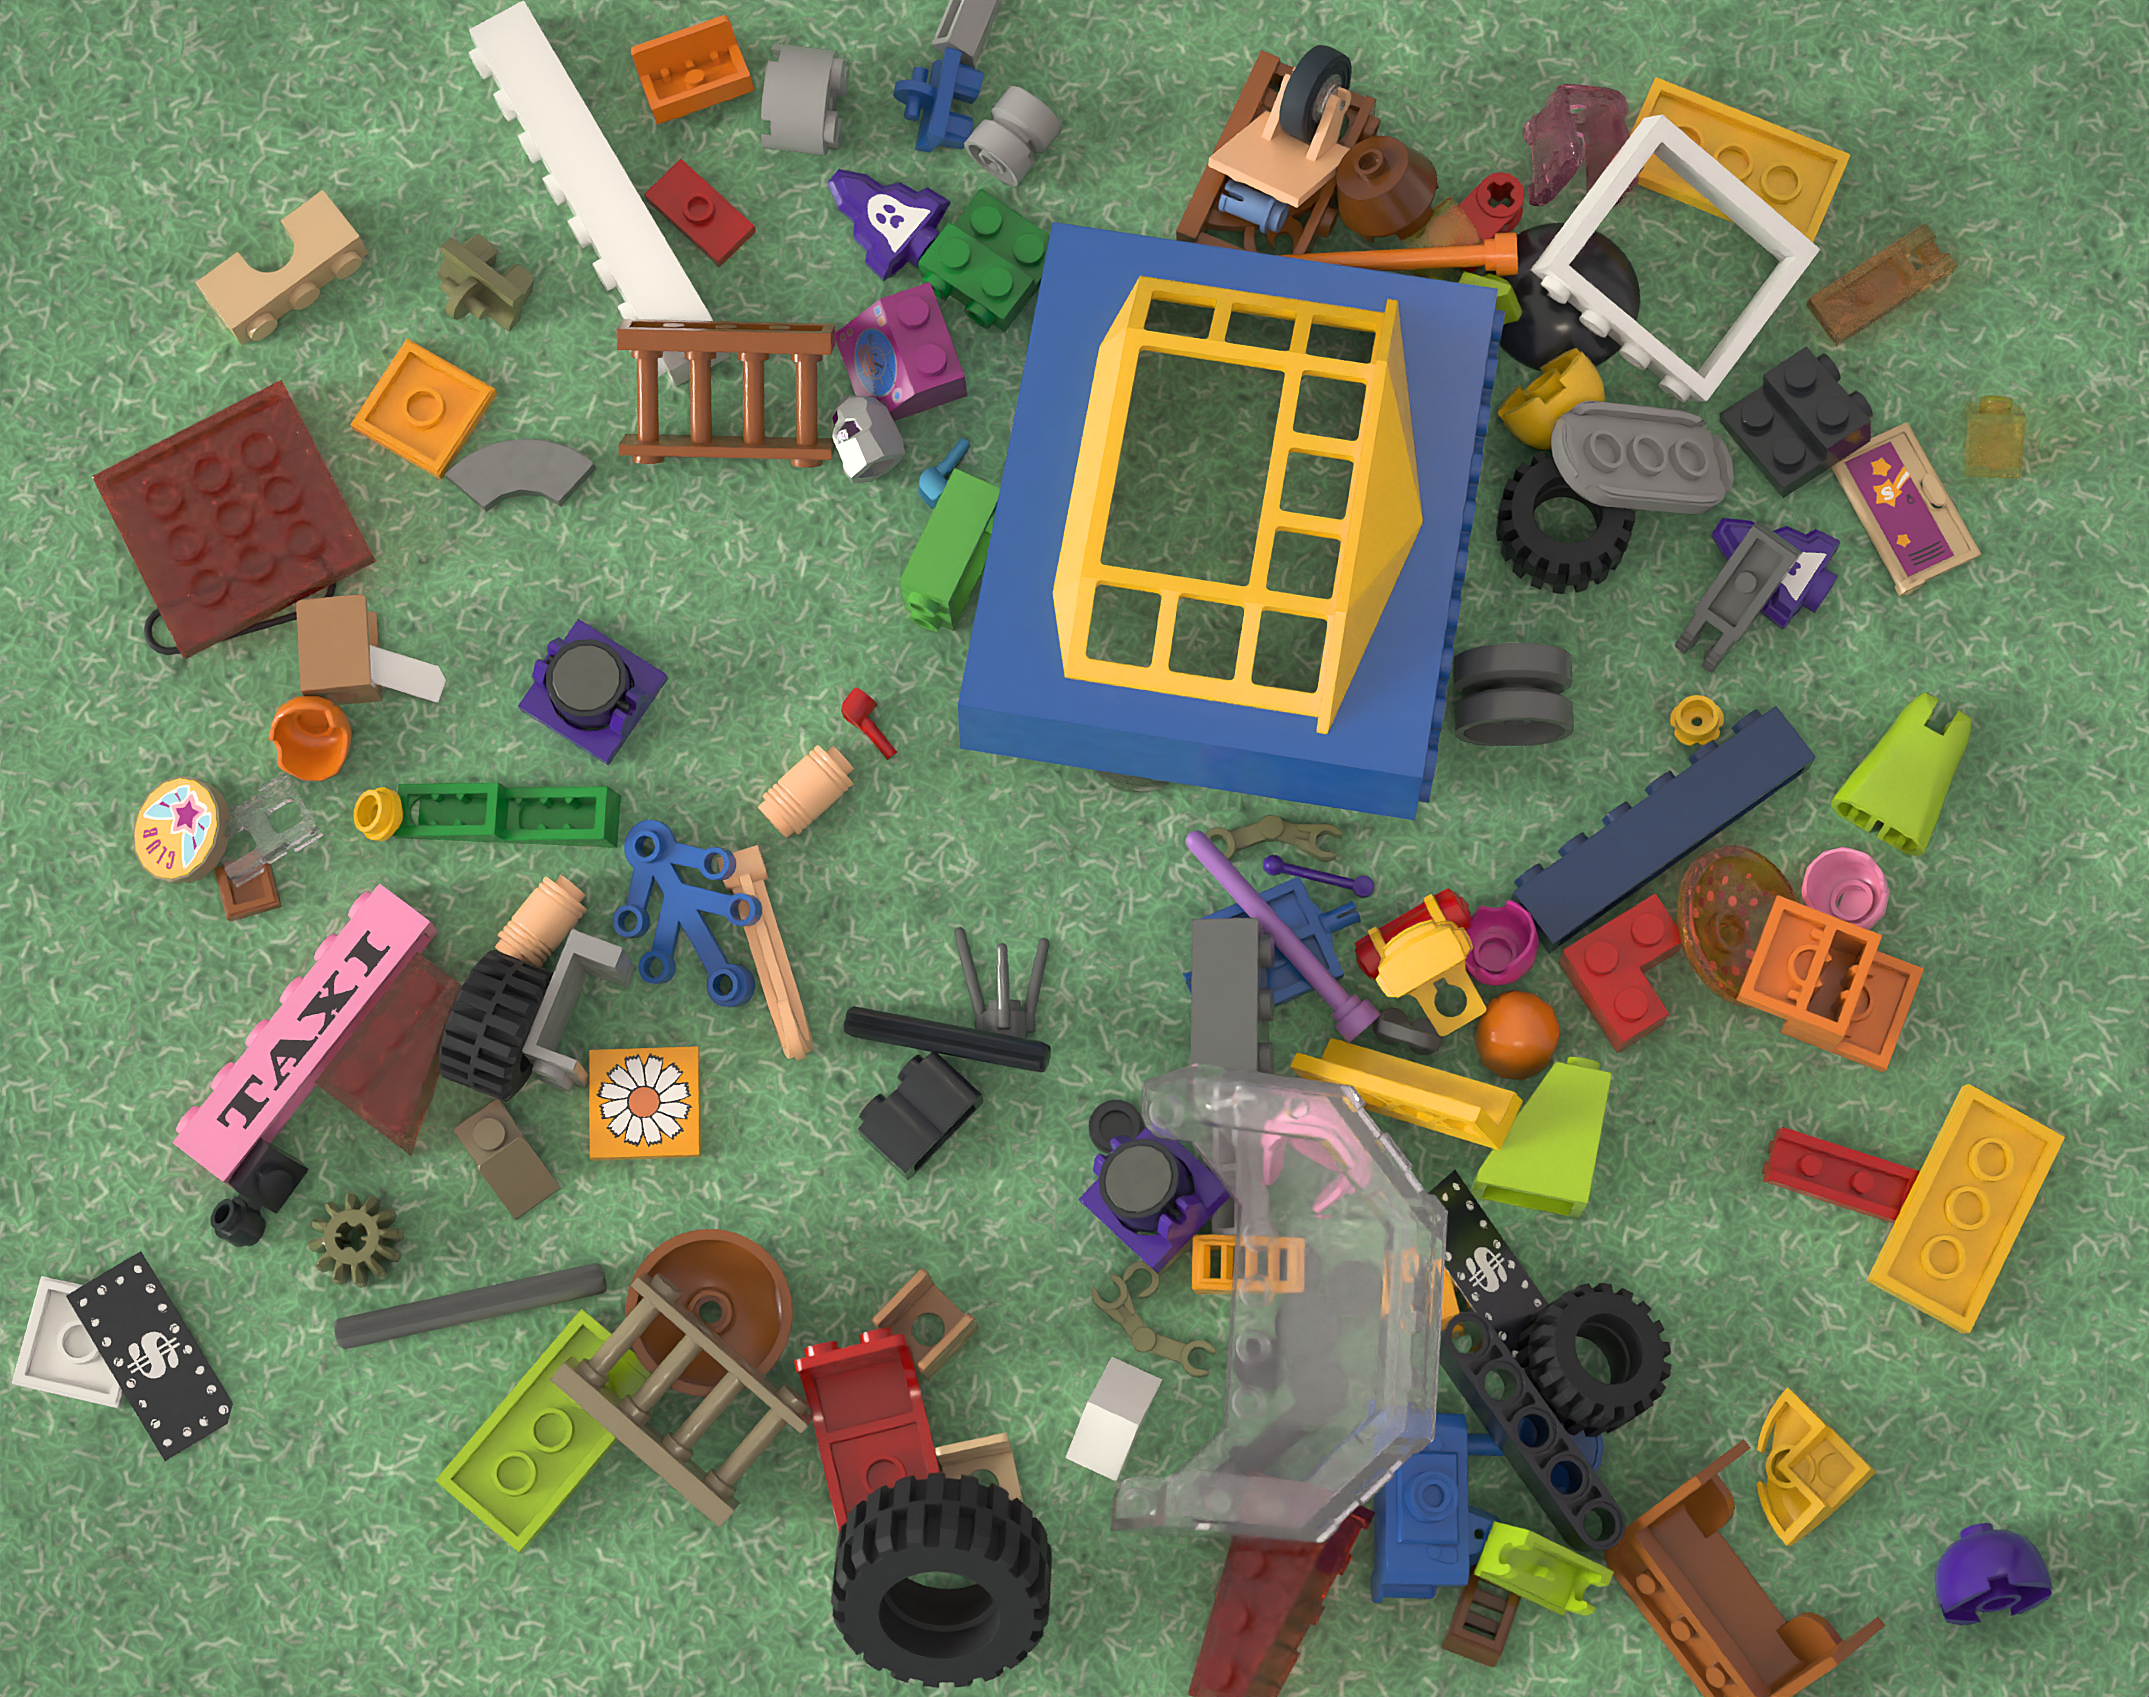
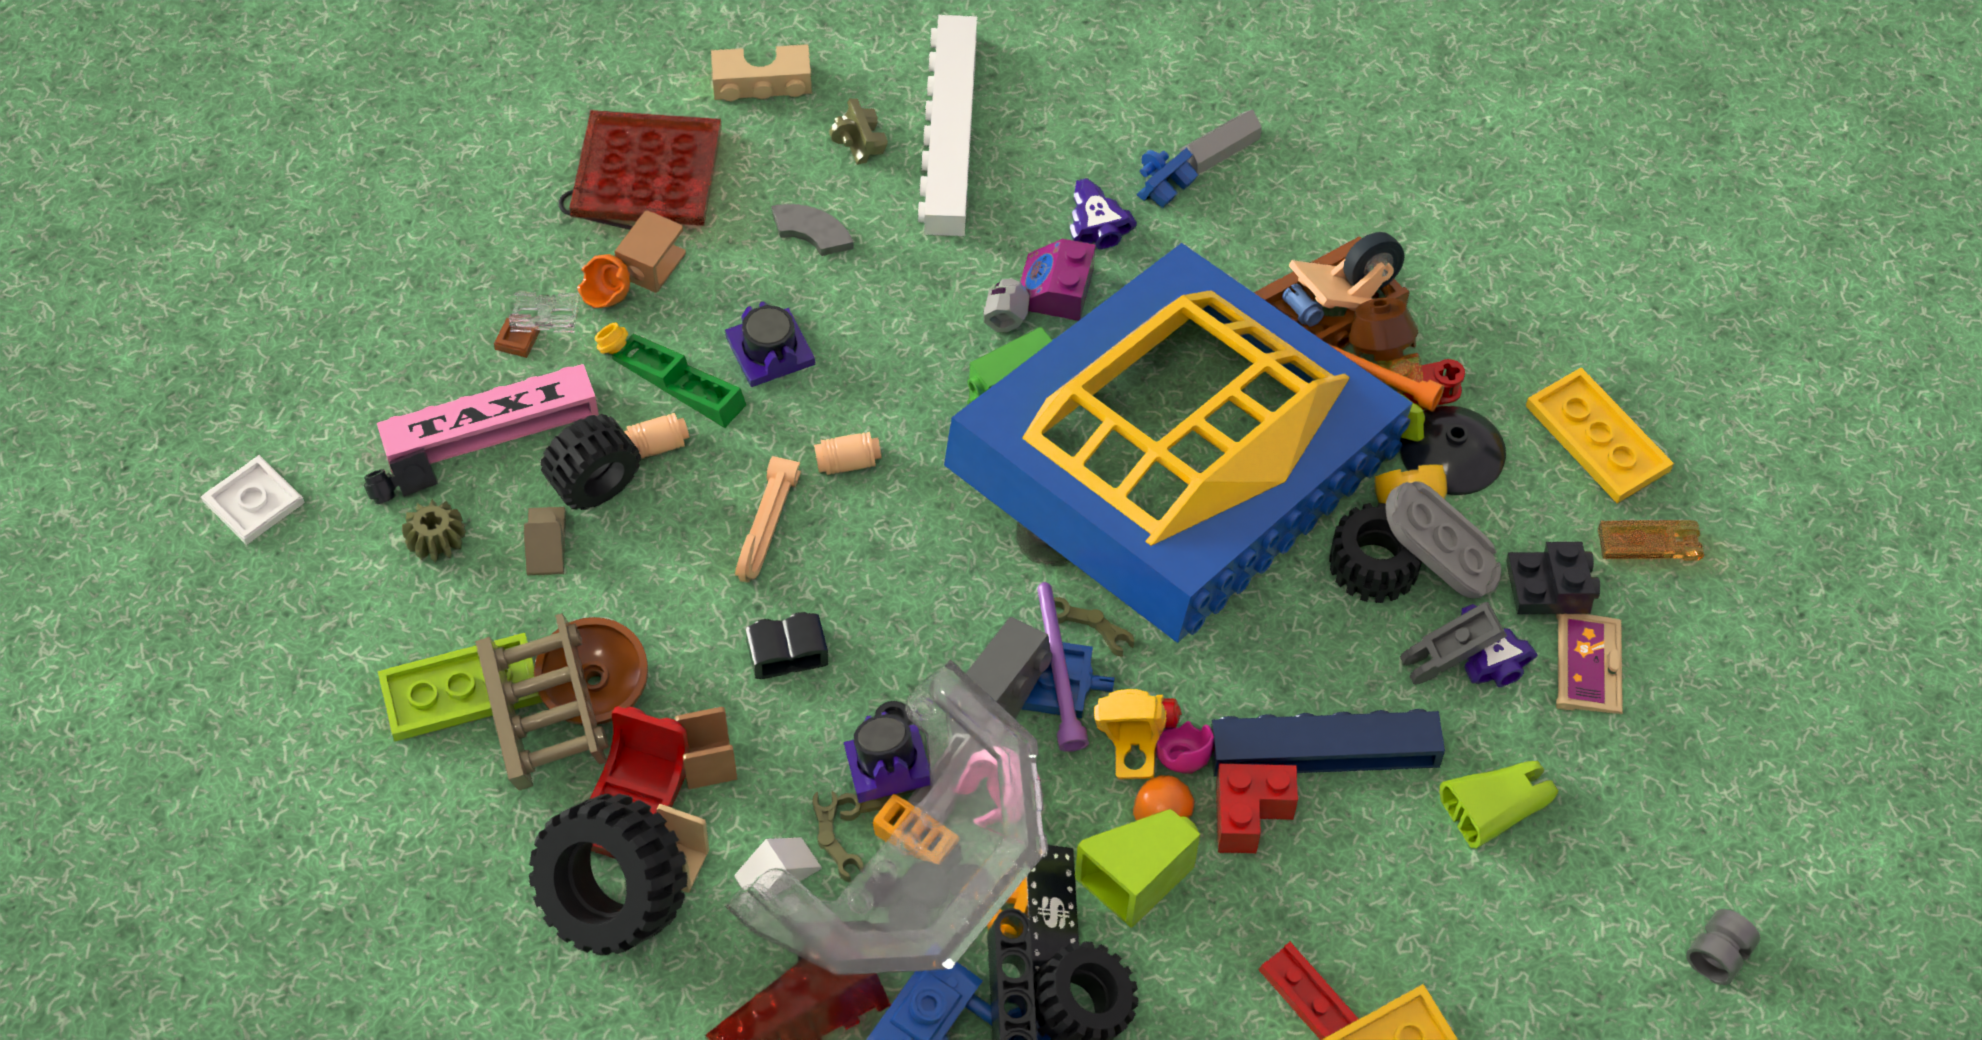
camera: 25 degrees right, 20 degrees down
(152, 1355) = (282, 525): black sticker -> none
(181, 830) = (503, 288): tile -> none
(394, 1055) = (514, 452): clear red wedge -> none
(406, 674) = (676, 283): white sticker -> none
(423, 409) = (784, 173): light orange tile -> none
(470, 1306) = (468, 600): dark grey axle -> none
(580, 957) = (635, 470): light grey panel -> none
(644, 1103) = (641, 556): tile -> none
(682, 908) = (739, 437): blue plant -> none
(691, 69) = (1043, 94): orange bracket -> none
(700, 212) = (998, 162): red plate -> none
(752, 344) = (948, 205): dark orange fence -> none
(802, 99) = (1090, 132): light grey brick -> none
(856, 710) = (906, 431): red hand -> none
(947, 1039) = (830, 613): black axle -> none
(987, 262) = (1128, 255): green plate -> none
(1003, 1014) = (869, 624): dark grey plant -> none
(1017, 130) = (1198, 208): light grey wheel -> none
(1361, 886) = (1127, 678): dark purple hinge -> none
(1416, 1092) = (1081, 790): yellow fence -> none
(1419, 1034) = (1093, 759): dark grey piece -> none
(1513, 695) = (1282, 618): dark grey wheel -> none
(1556, 141) = (1528, 372): clear pink piece -> none
(1701, 708) = (1390, 693): yellow plate -> none
(1724, 913) = (1338, 815): clear orange dish -> none
(1729, 195) = (1581, 431): white window -> none
(1830, 984) = (1372, 877): orange bracket -> none
(1847, 872) = (1419, 828): bright pink hair -> none
(1994, 438) = (1668, 653): clear yellow bracket -> none

